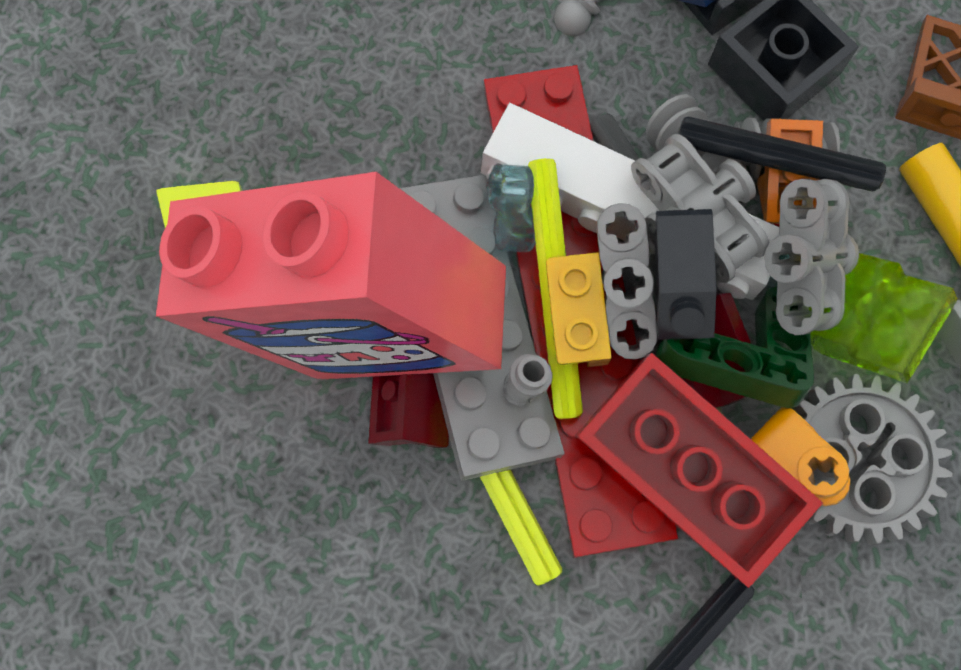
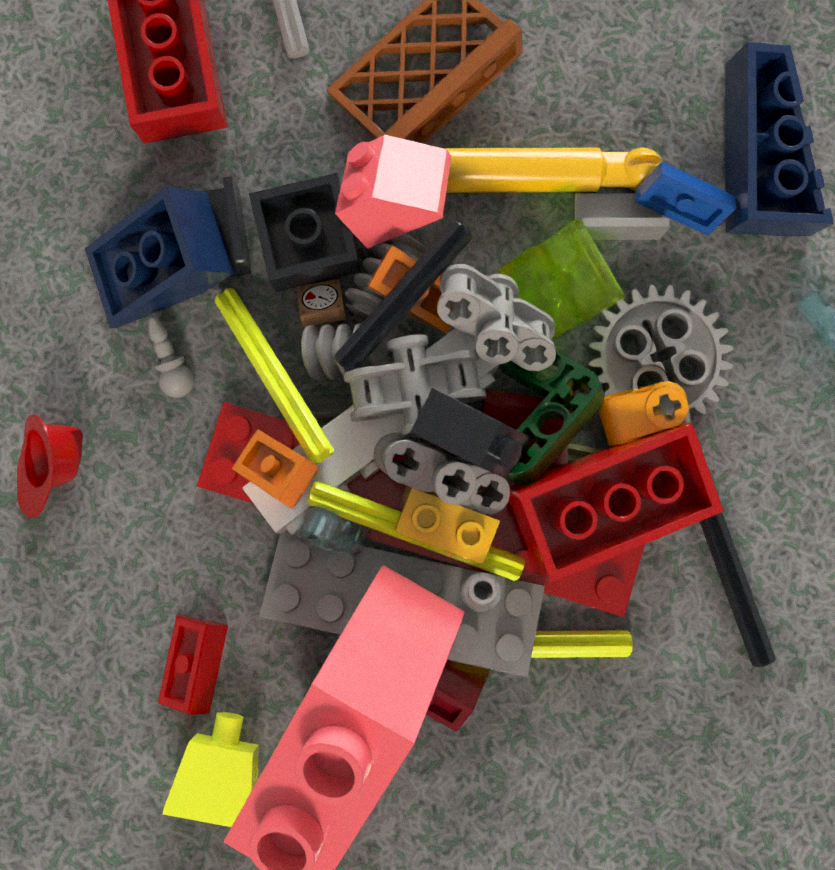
camera: 60 degrees left, 10 degrees up
(311, 157) = (192, 665): none -> red slope
(546, 122) = (275, 468): none -> orange slope
(628, 88) = (274, 377): none -> neon yellow axle
(722, 103) = (321, 303): none -> tile
(874, 102) = (392, 188): none -> coral slope

